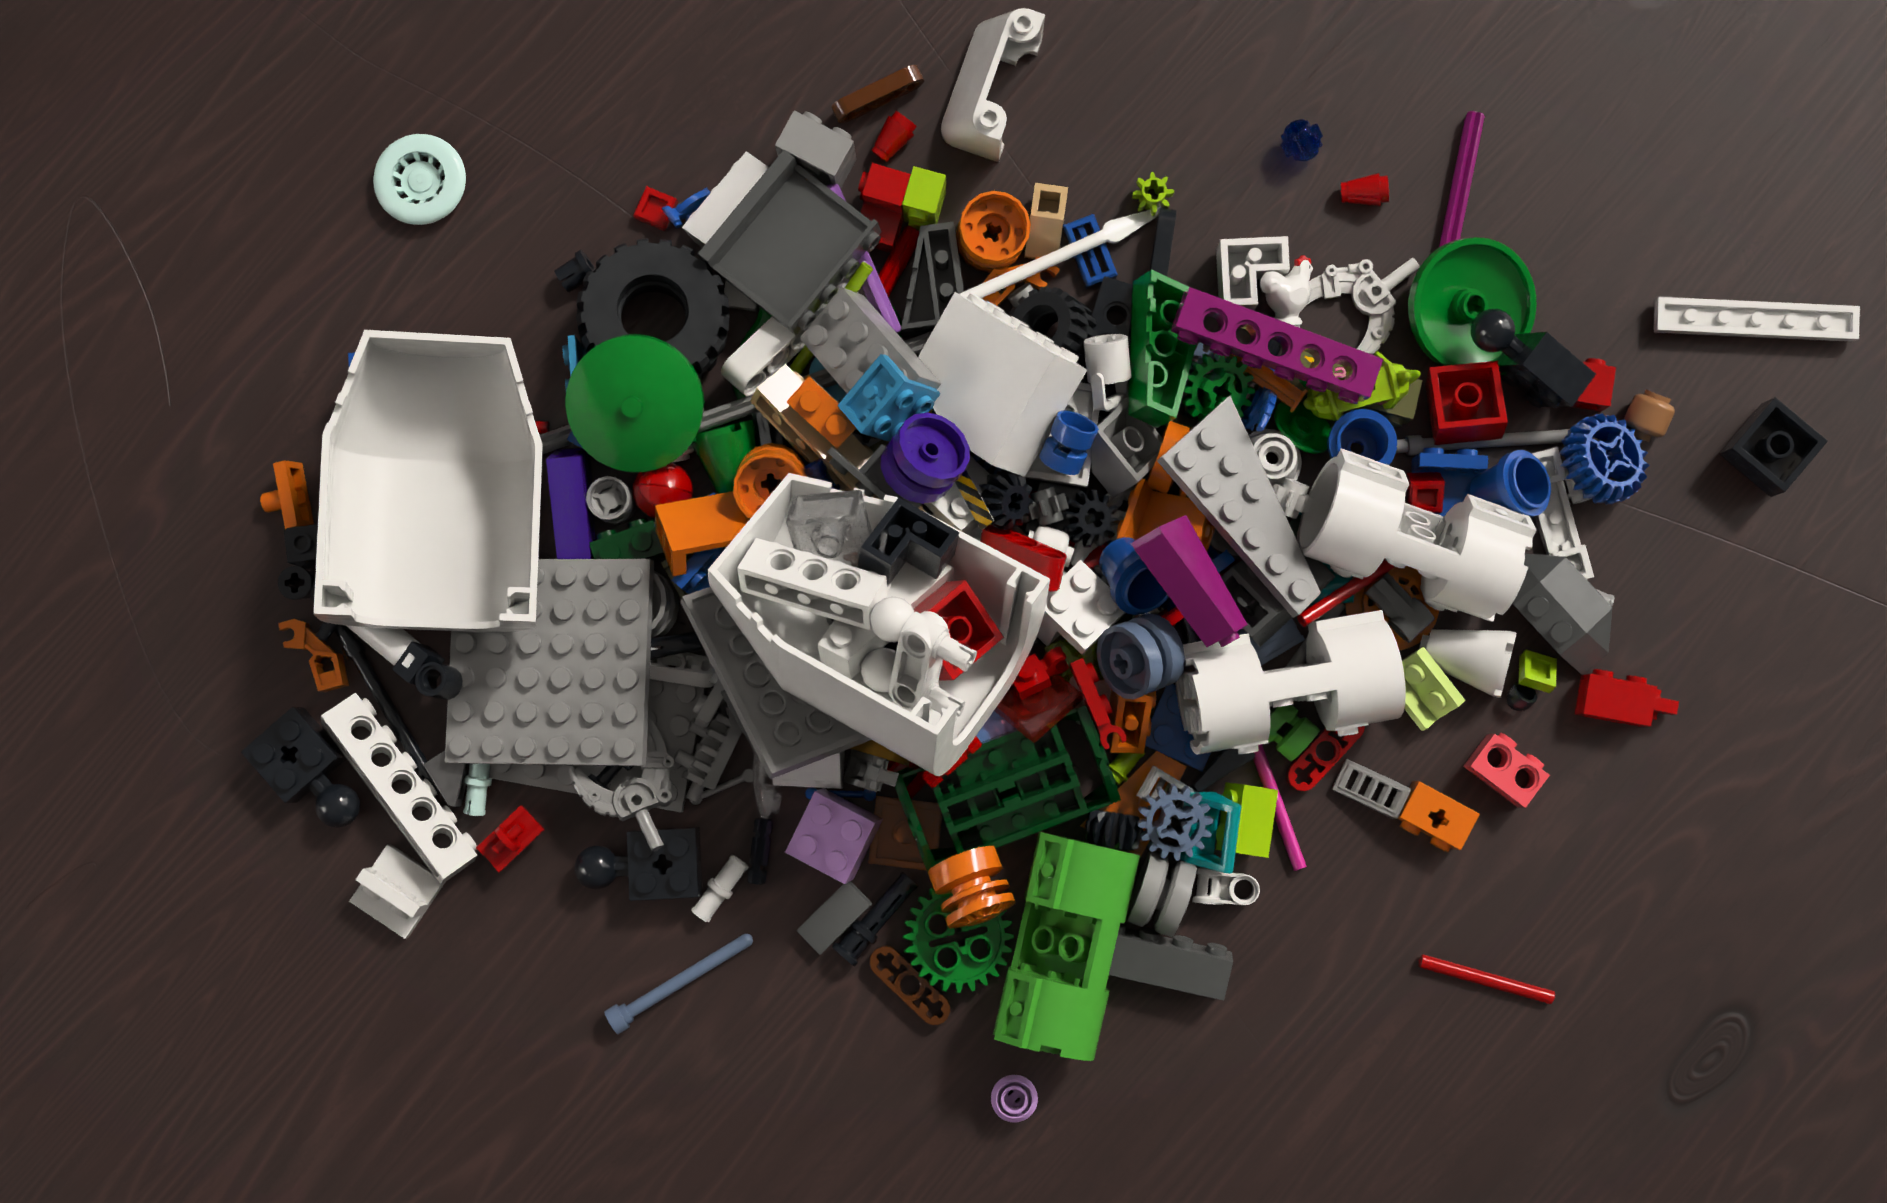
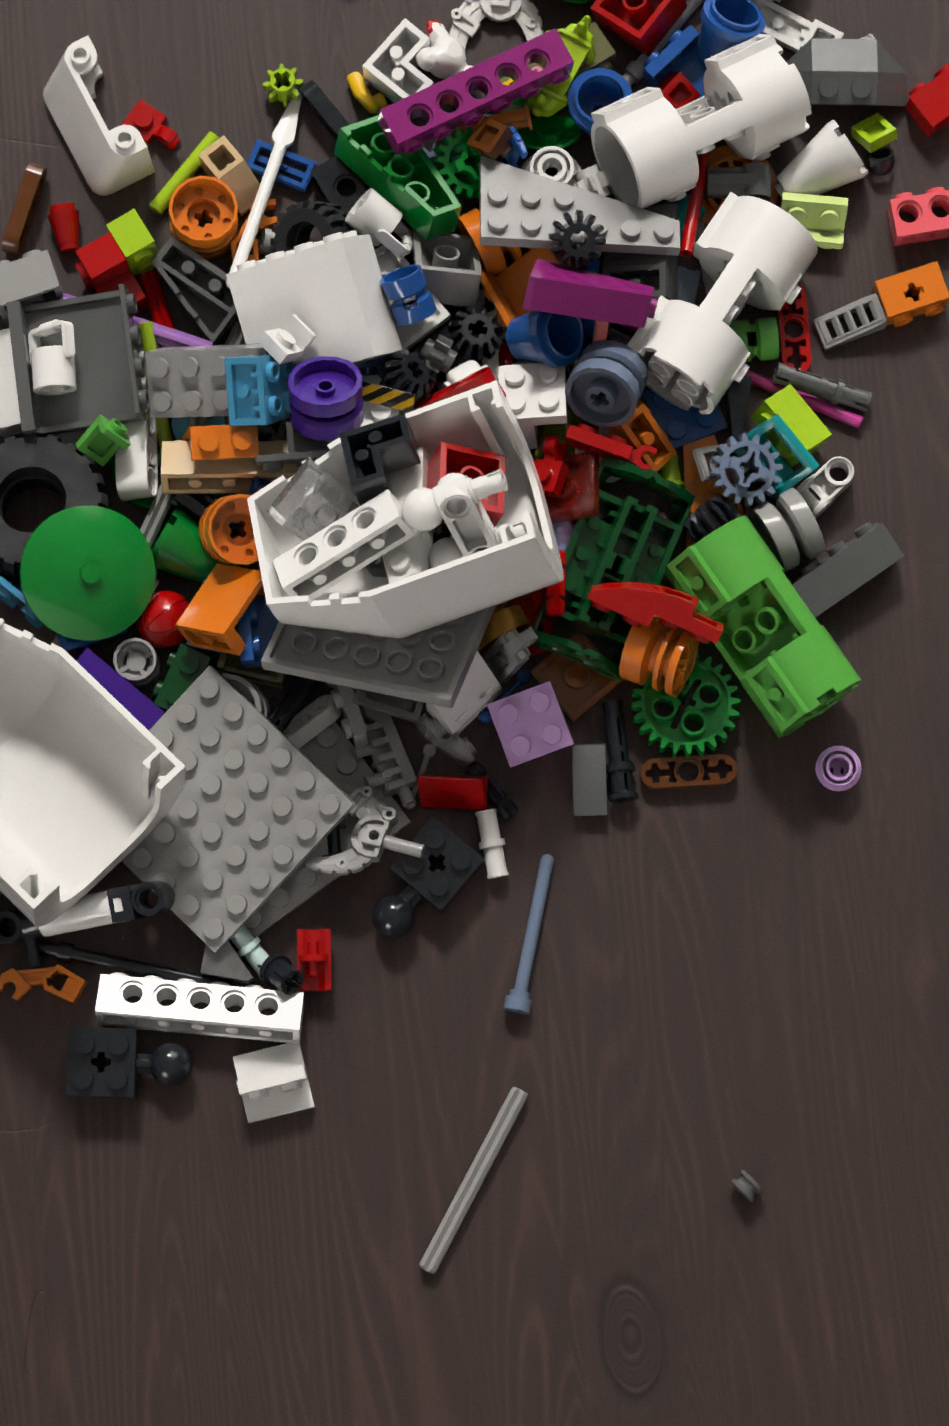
camera: 50 degrees left, 5 degrees down
(458, 1106) = (473, 1180): none -> light grey axle
(476, 825) = (286, 974): none -> black bush
(732, 823) = (453, 791): none -> red slope
(749, 319) = (103, 439): none -> bright green bracket
(769, 232) = (53, 365): none -> white piece
(942, 387) = (288, 341): none -> white bracket
(994, 843) = (644, 600): none -> red slope
(1015, 185) = (186, 171): none -> lime piece
(1029, 123) = (151, 125): none -> red plate
(1201, 260) = (363, 95): none -> yellow arm
(1235, 522) = (576, 226): none -> black gear
(1249, 391) = (491, 139): none -> reddish brown tile
(1305, 827) = (822, 387): none -> dark grey pin

